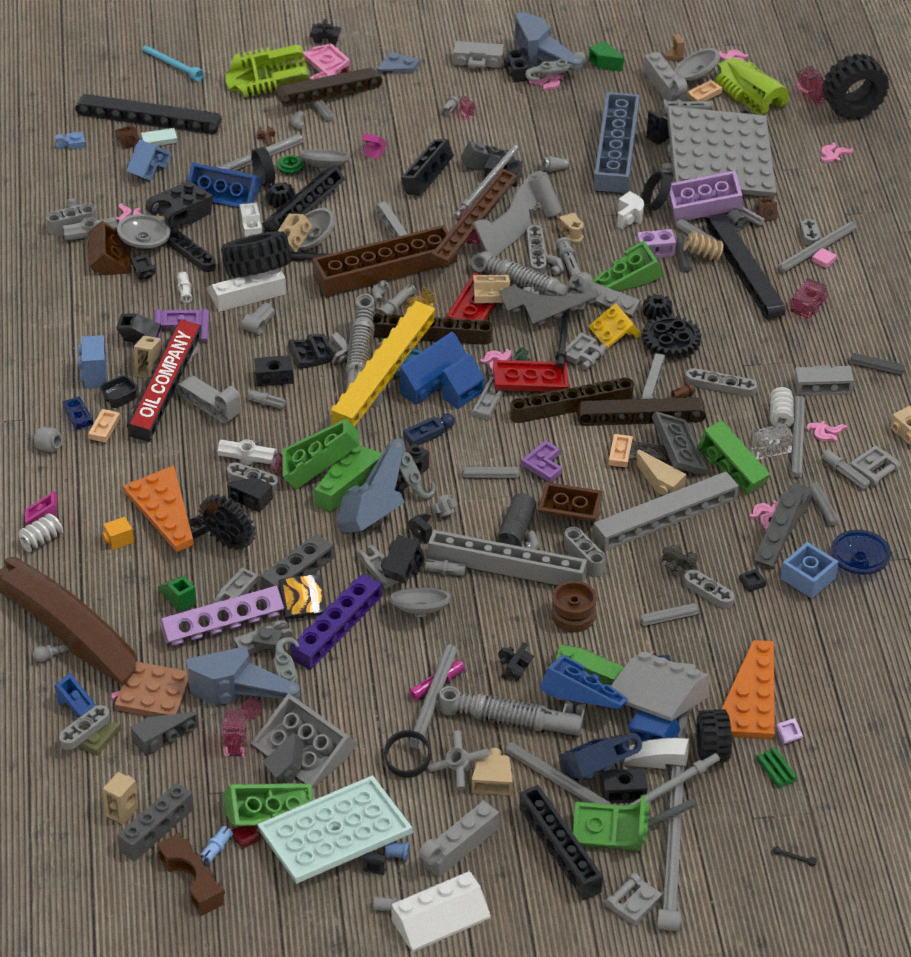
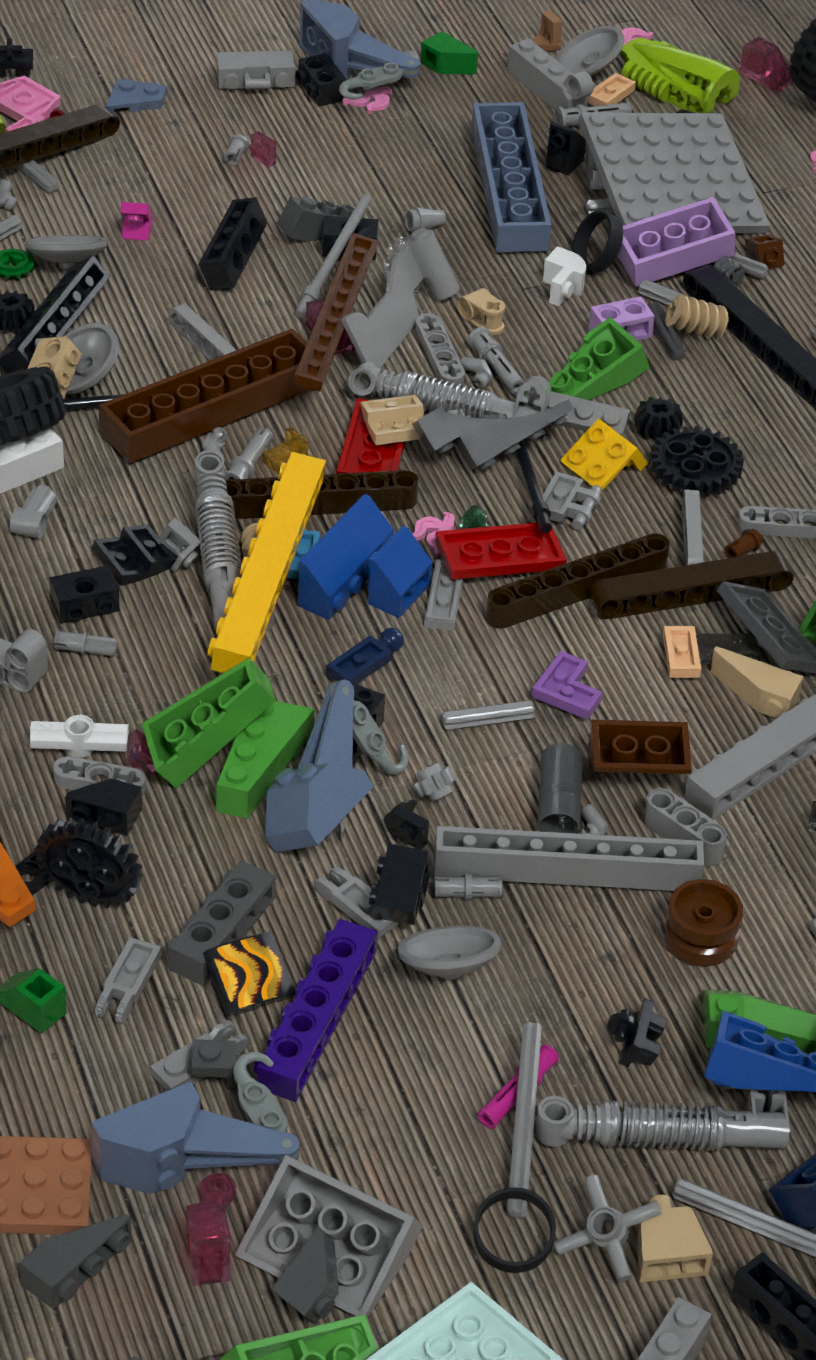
camera: 15 degrees left, 0 degrees up
(269, 596) = (38, 1062): lavender brick -> none

